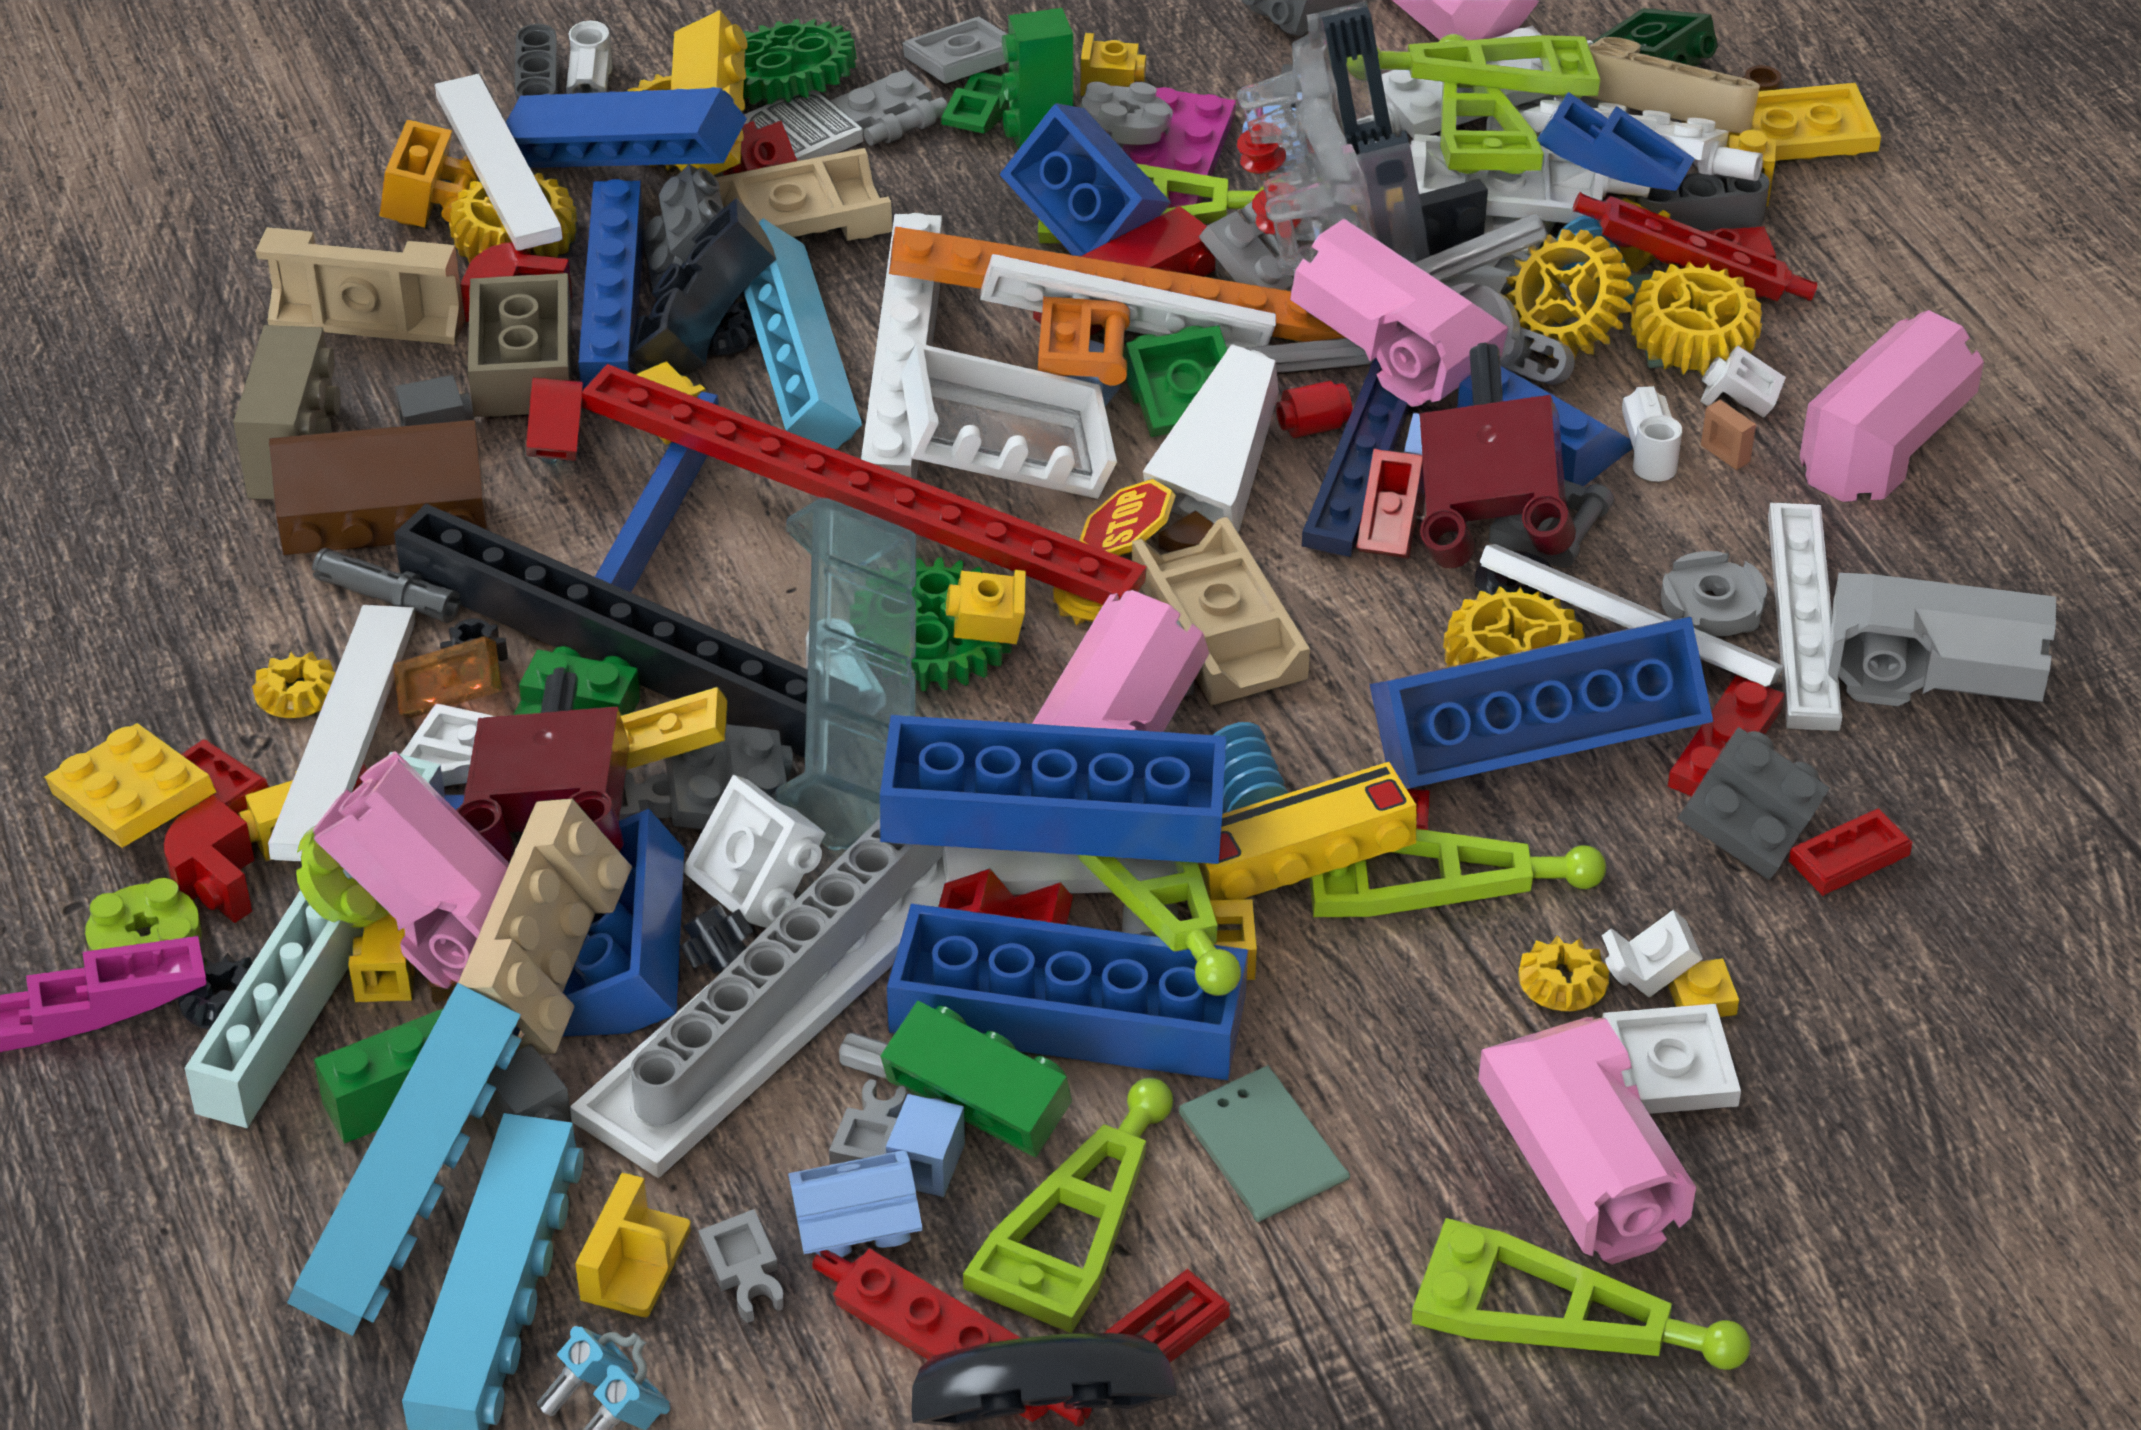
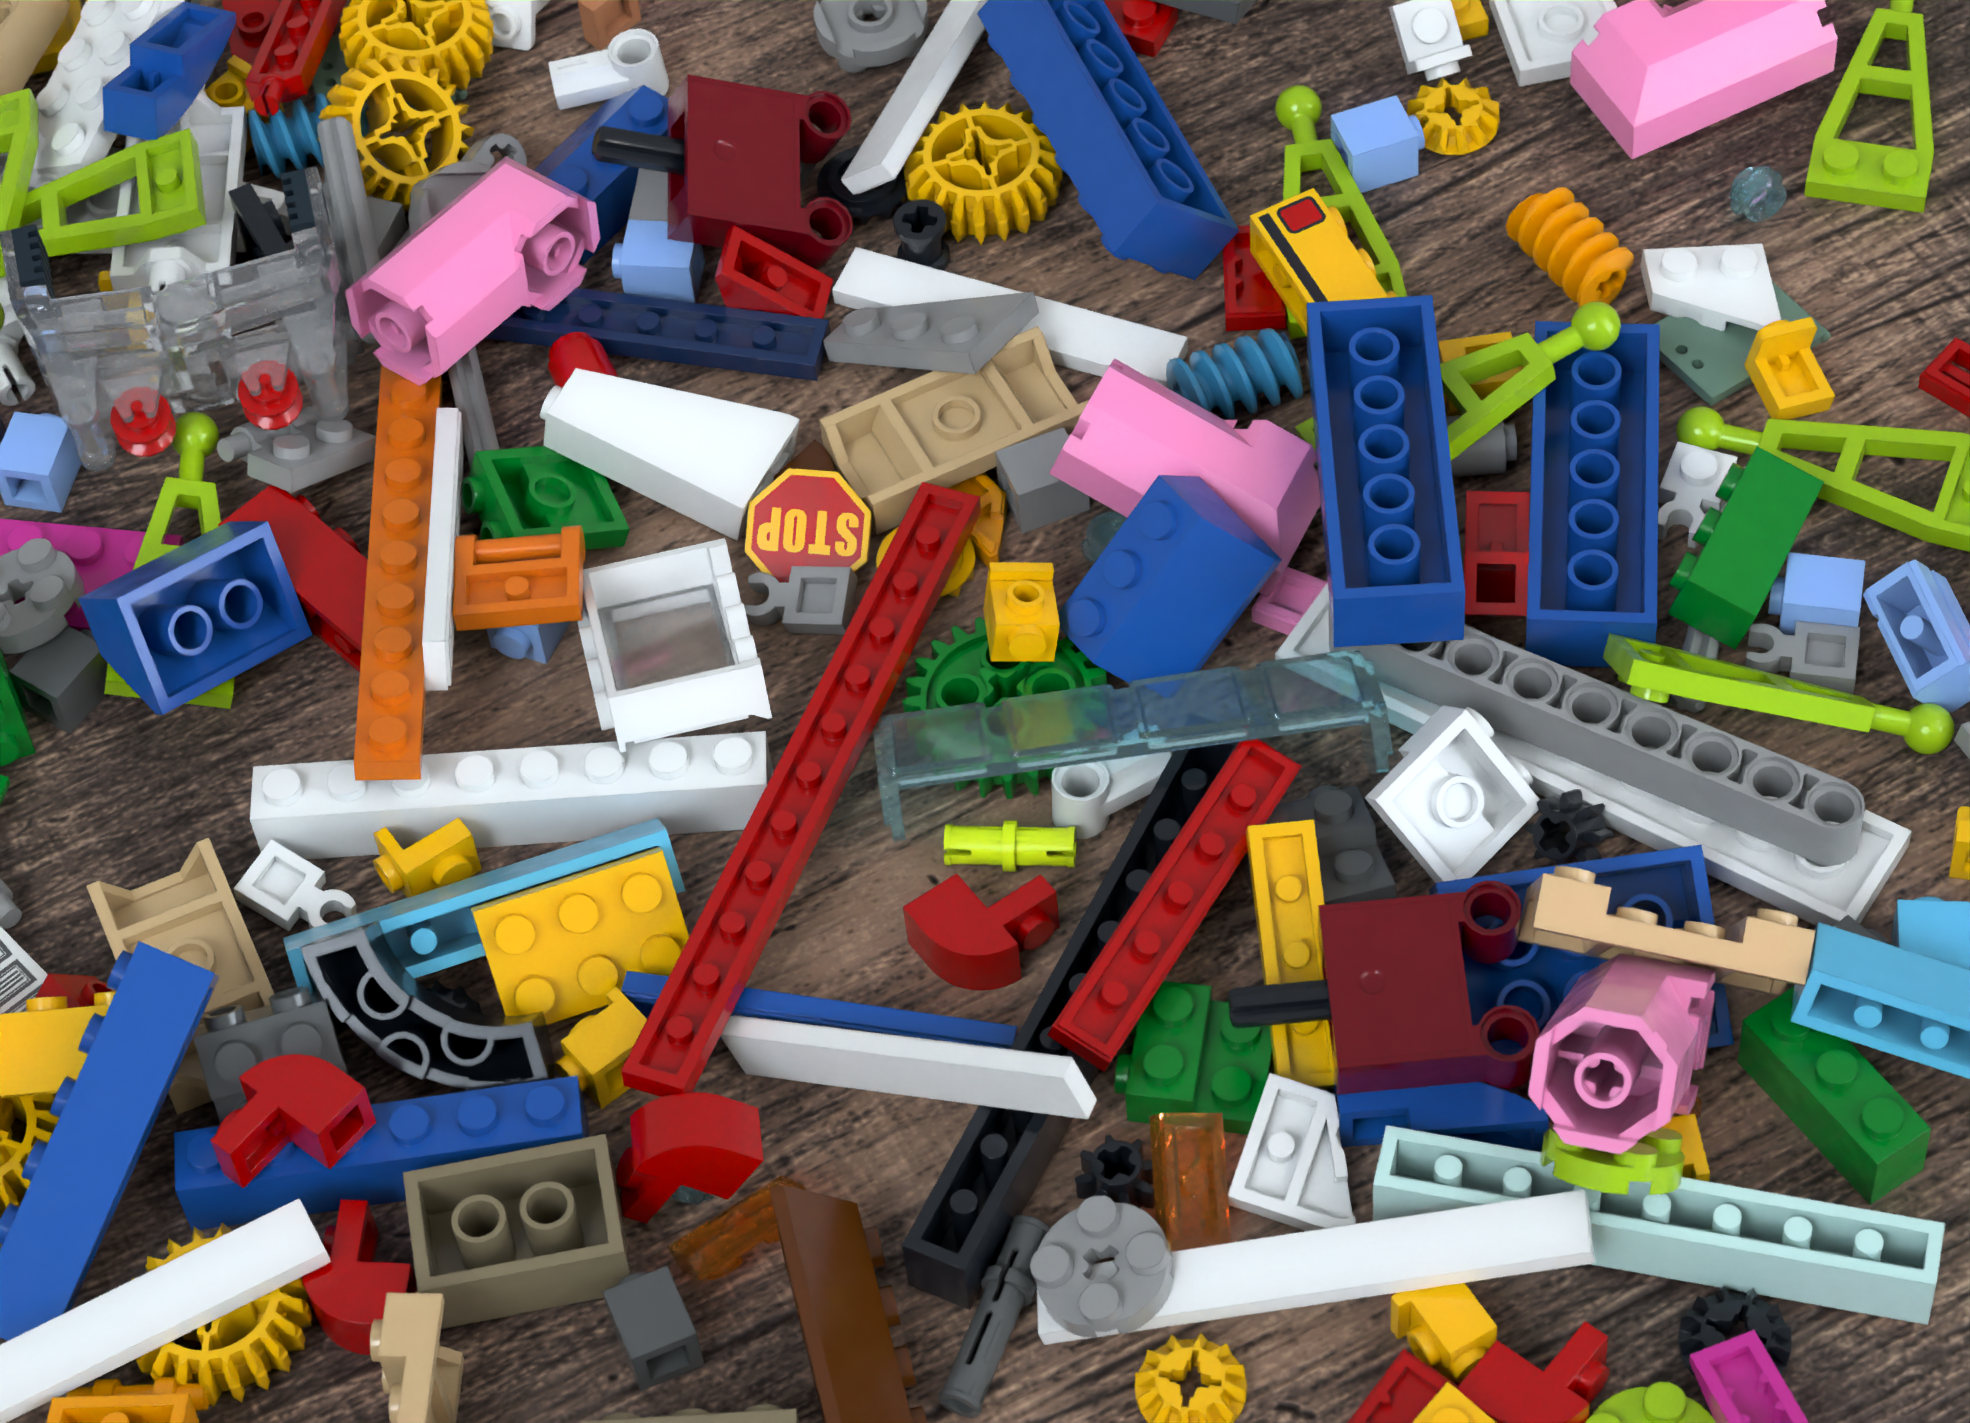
camera: 90 degrees left, 10 degrees up
(389, 624) = (1094, 1233): none -> light grey plate
(503, 465) = (719, 1243): none -> clear orange plate
(566, 513) = (910, 1066): none -> white tile
(611, 209) = (297, 1102): none -> red brick
(677, 660) = (1173, 903): none -> red tile
(719, 586) = (975, 943): none -> red brick
(758, 369) = (580, 935): none -> yellow plate
(795, 624) = (1010, 845): none -> neon yellow pin
(851, 981) = (1662, 670): none -> lime plate
(852, 255) = (289, 887): none -> white plate
(858, 315) = (428, 864): none -> yellow bracket
(997, 671) = (1167, 583): none -> blue slope
(1070, 515) = (811, 603): none -> light grey plate
(1095, 1088) = (1691, 487): none -> white plate
(1195, 1160) = (1788, 371): none -> yellow bracket
(1310, 1126) = (1711, 284): none -> white wing
(1315, 592) = (932, 335): none -> light grey wing
(1350, 663) = (1073, 334): none -> white tile
(1367, 1020) = (1570, 246): none -> light orange piece
(1432, 602) = (921, 229): none -> black bush
(1435, 1179) = (1757, 193): none -> clear light blue plate
(1520, 903) = (1378, 142): none -> light blue brick

